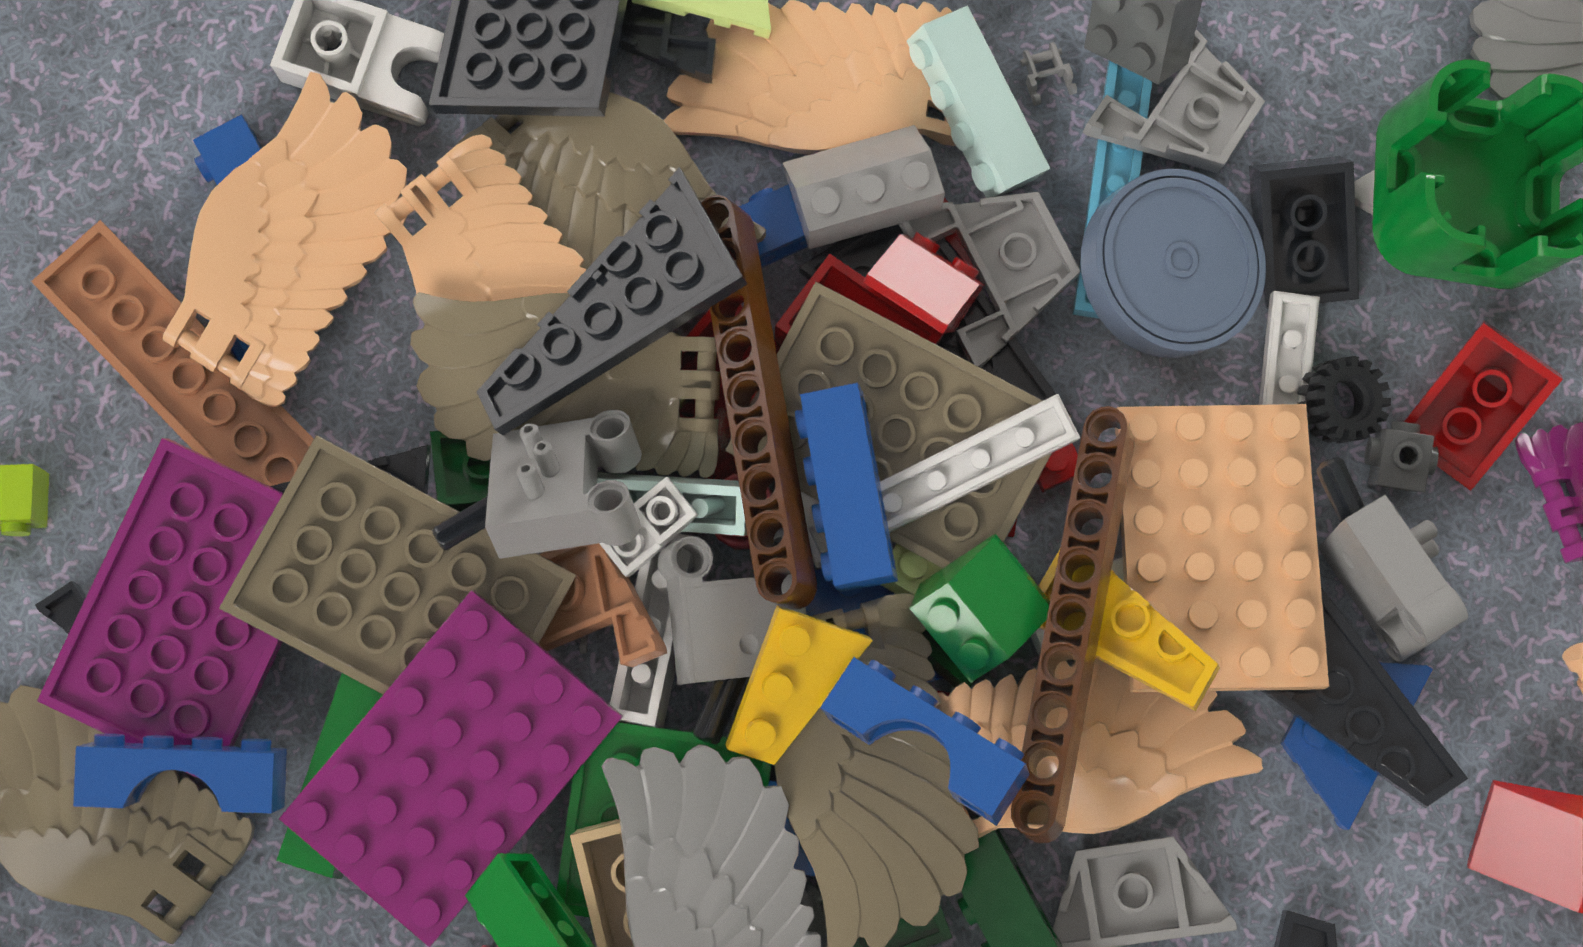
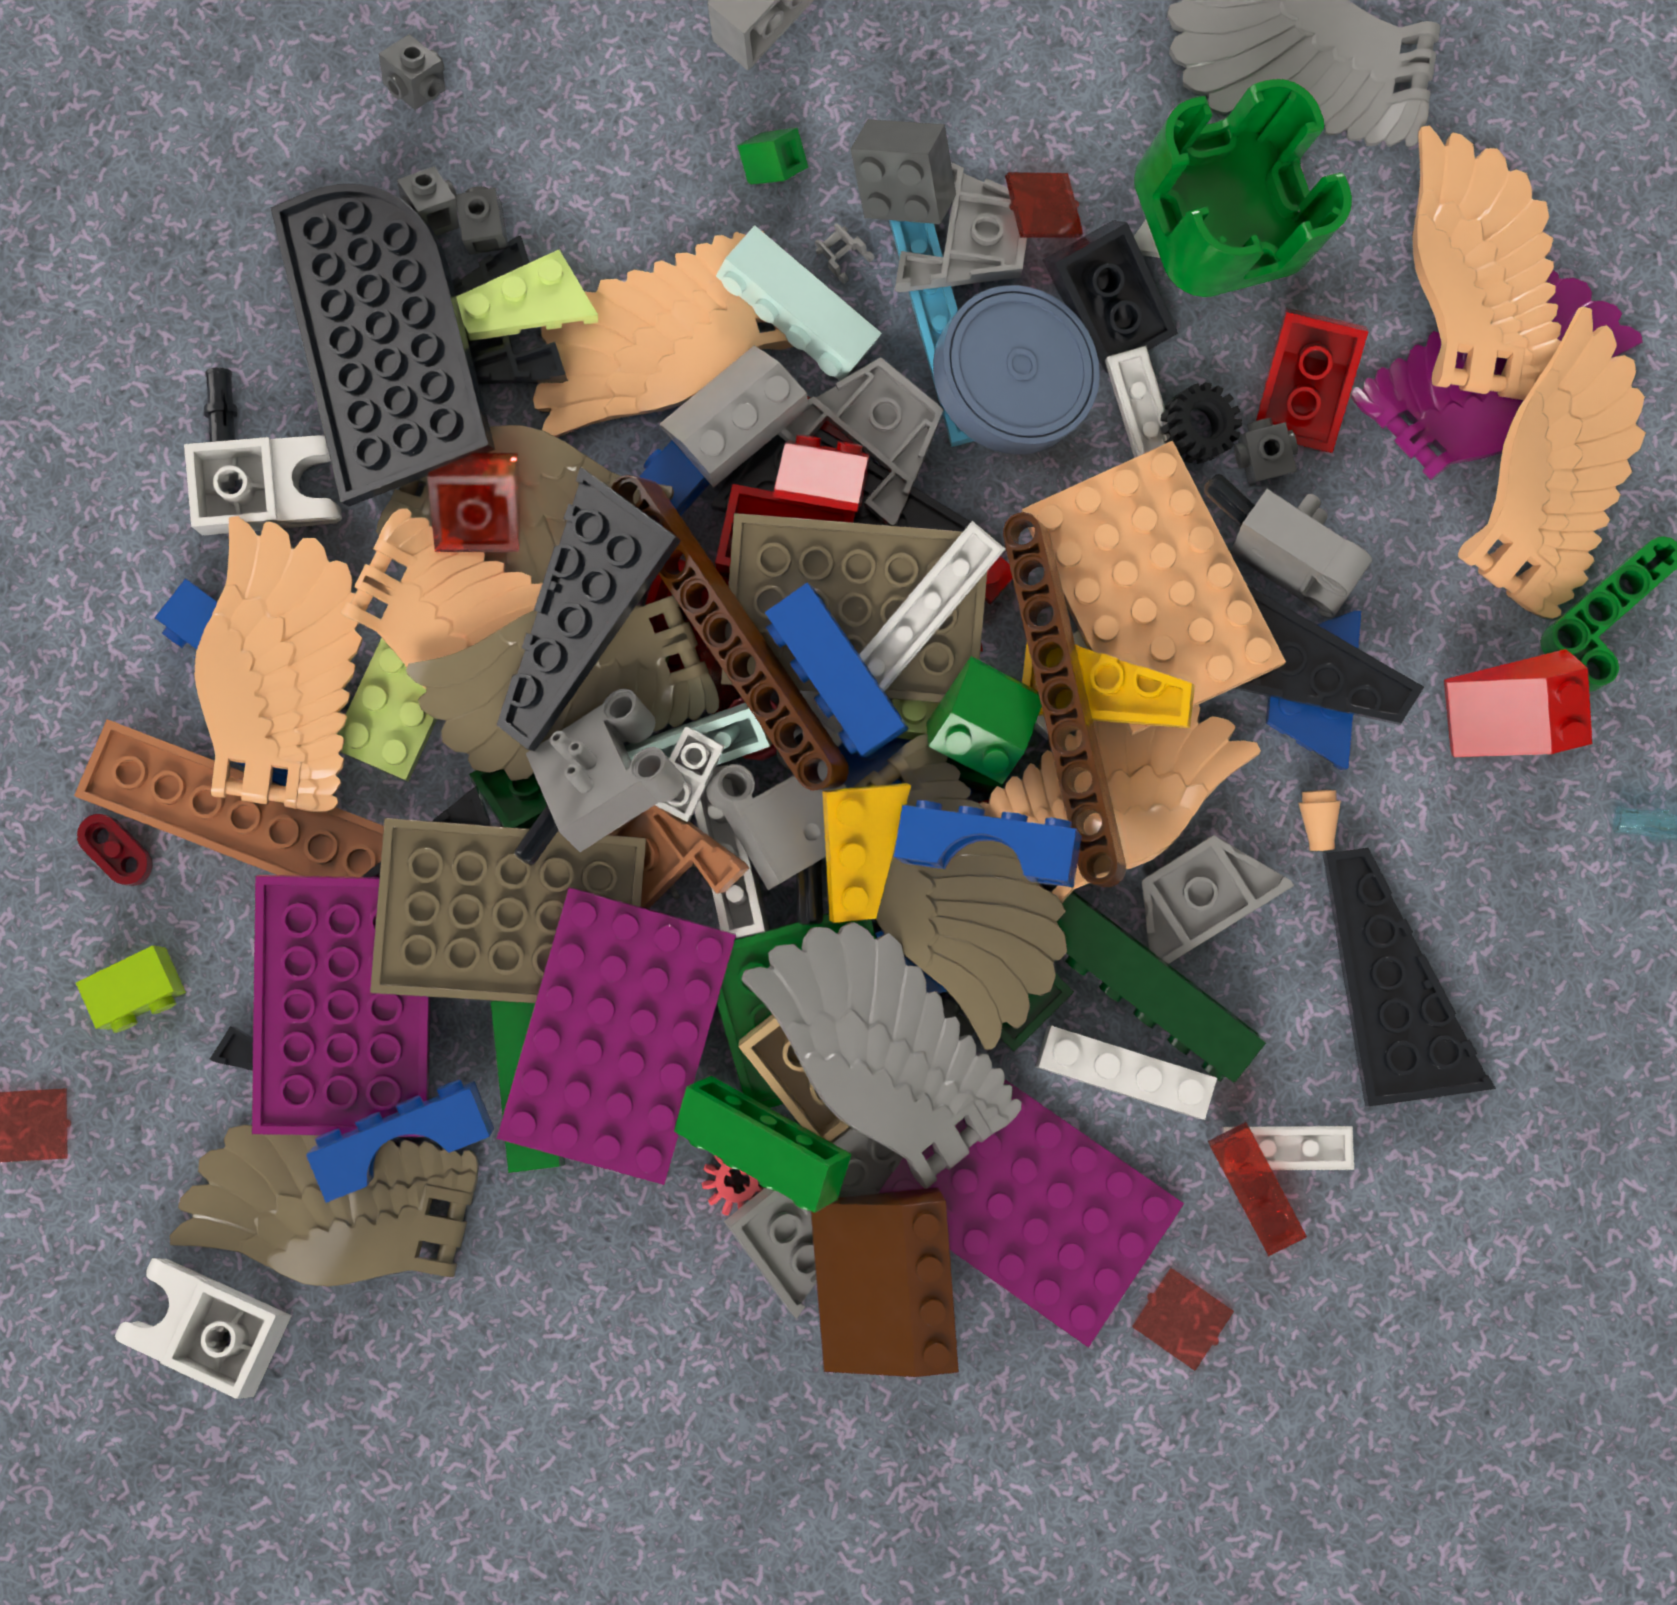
camera: 20 degrees left, 5 degrees up
(44, 356) = (115, 851): none -> dark red plate
(372, 340) = (386, 718): none -> yellowish green plate
(560, 162) = (476, 504): none -> clear red slope
(1274, 111) = (1044, 205): none -> clear red piece
(1296, 869) = (1320, 818): none -> light nougat cone

